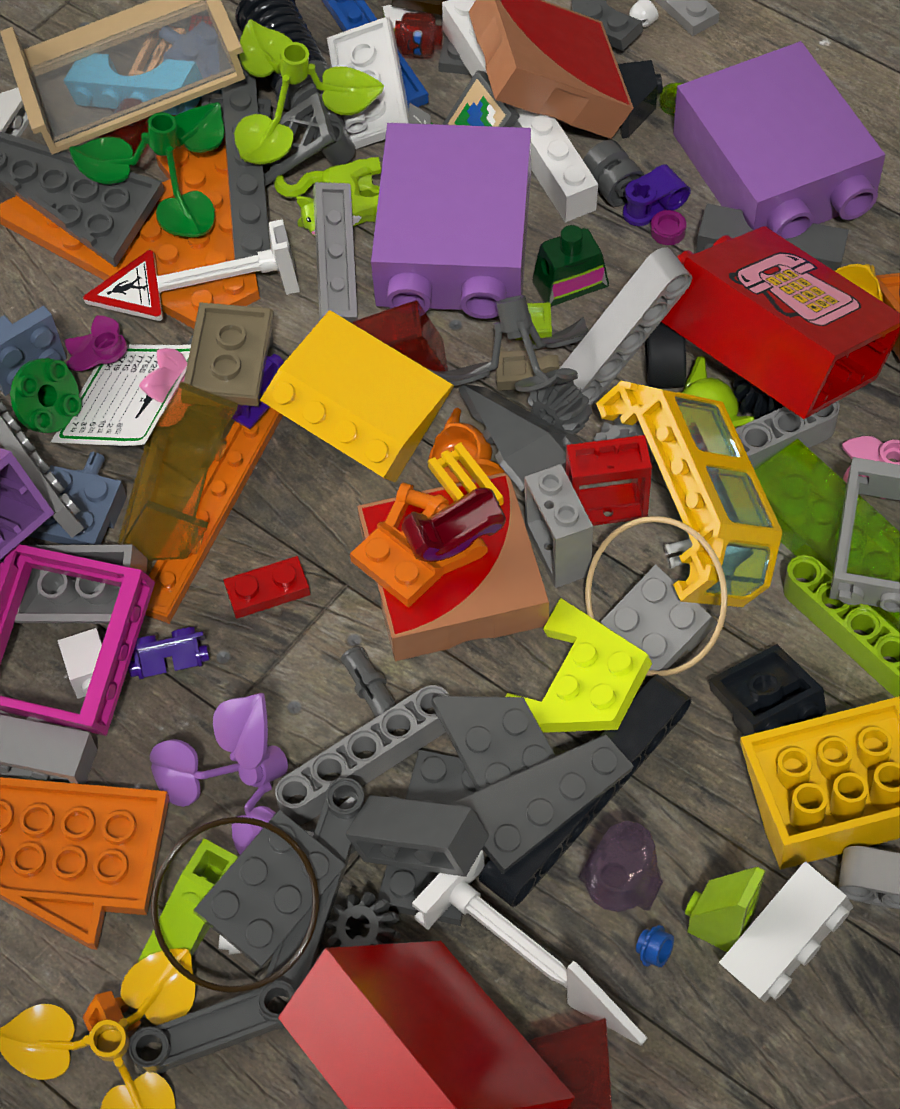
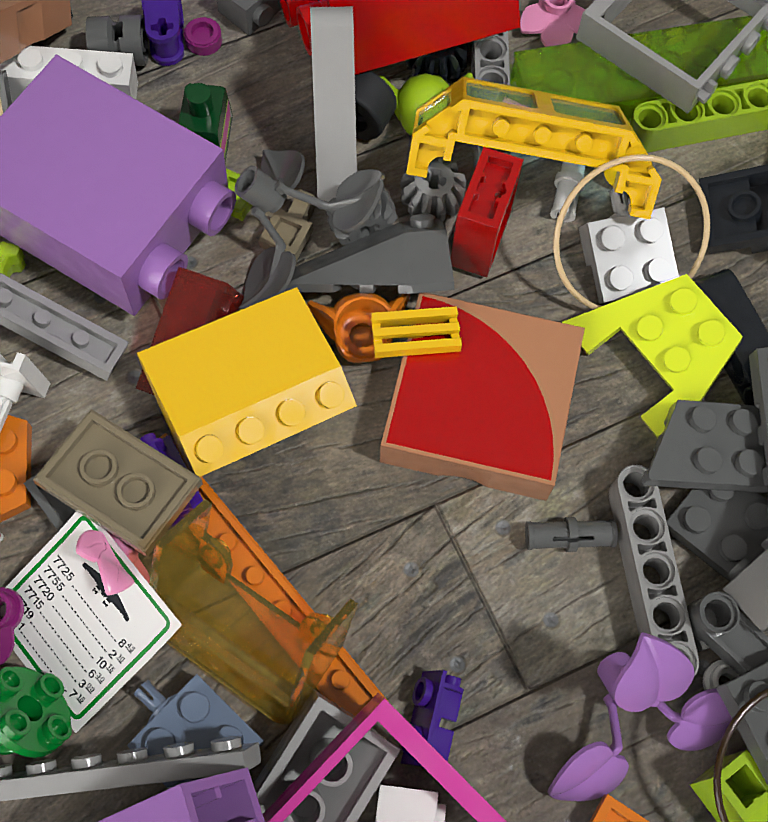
camera: 70 degrees left, 10 degrees up
(266, 587) = (402, 582): red plate -> none
(388, 556) = (472, 437): orange plate -> none
(454, 527) = (493, 358): dark red animal -> none
(558, 519) = (489, 280): light grey window -> none

